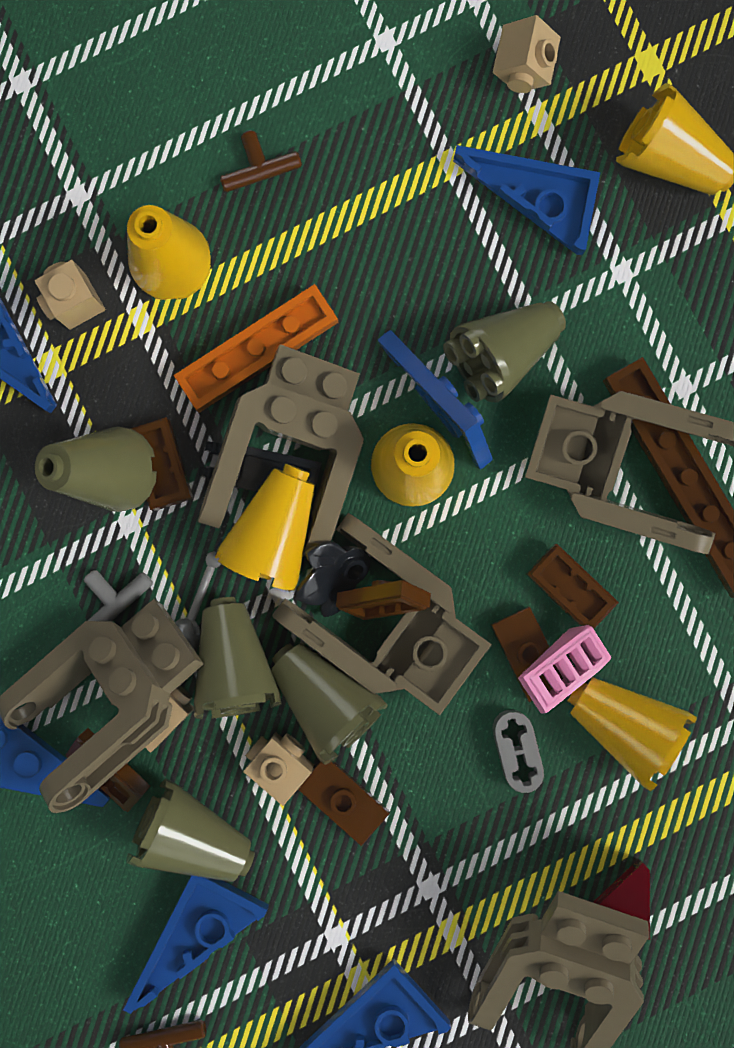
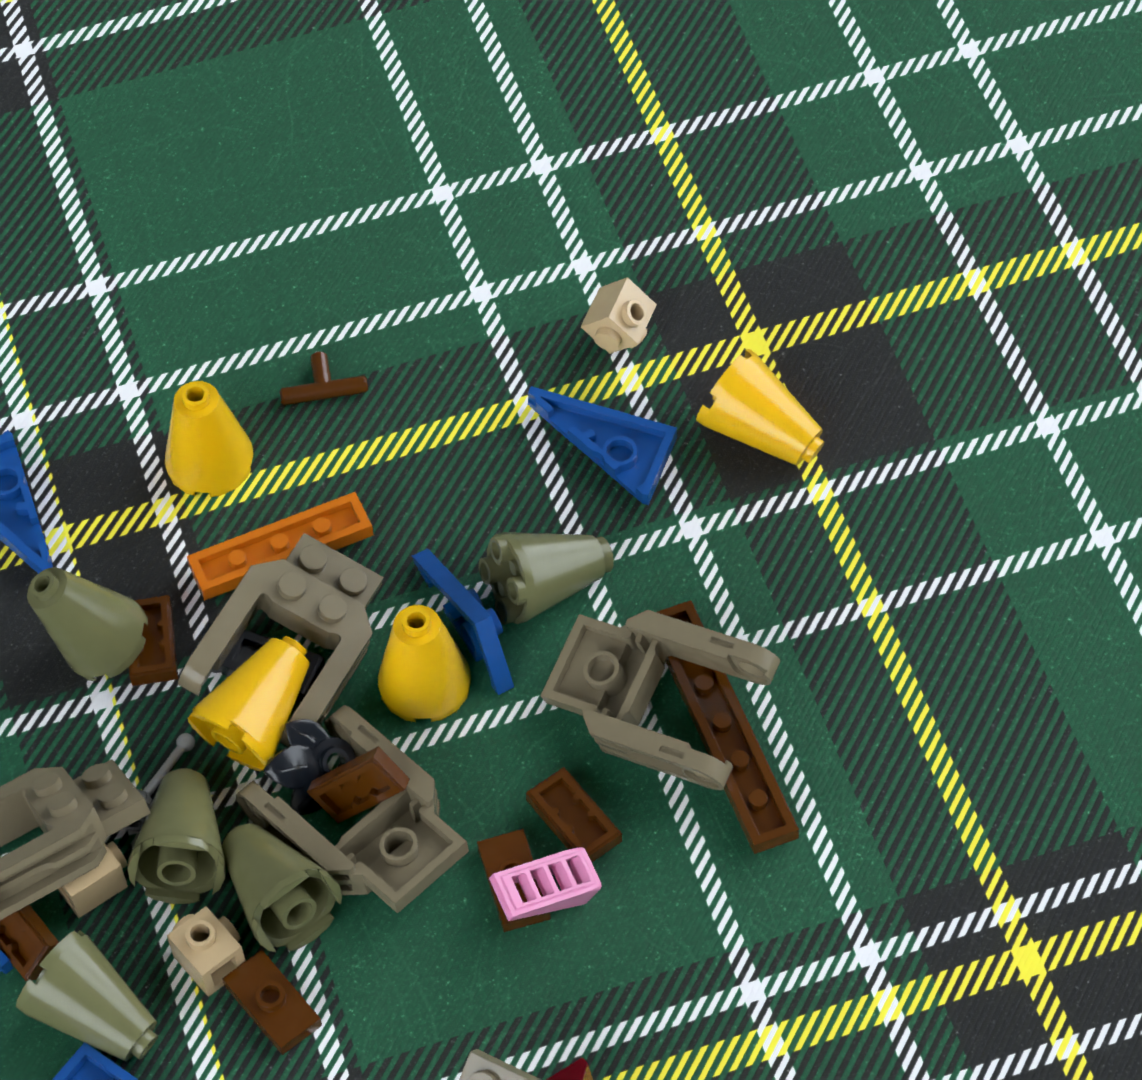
camera: 10 degrees right, 30 degrees down
(68, 294) = (96, 471): tan brick -> none
(115, 602) = (59, 758): light grey piece -> none
(508, 753) = (470, 977): light grey beam -> none
(632, 727) = (615, 958): yellow cone -> none

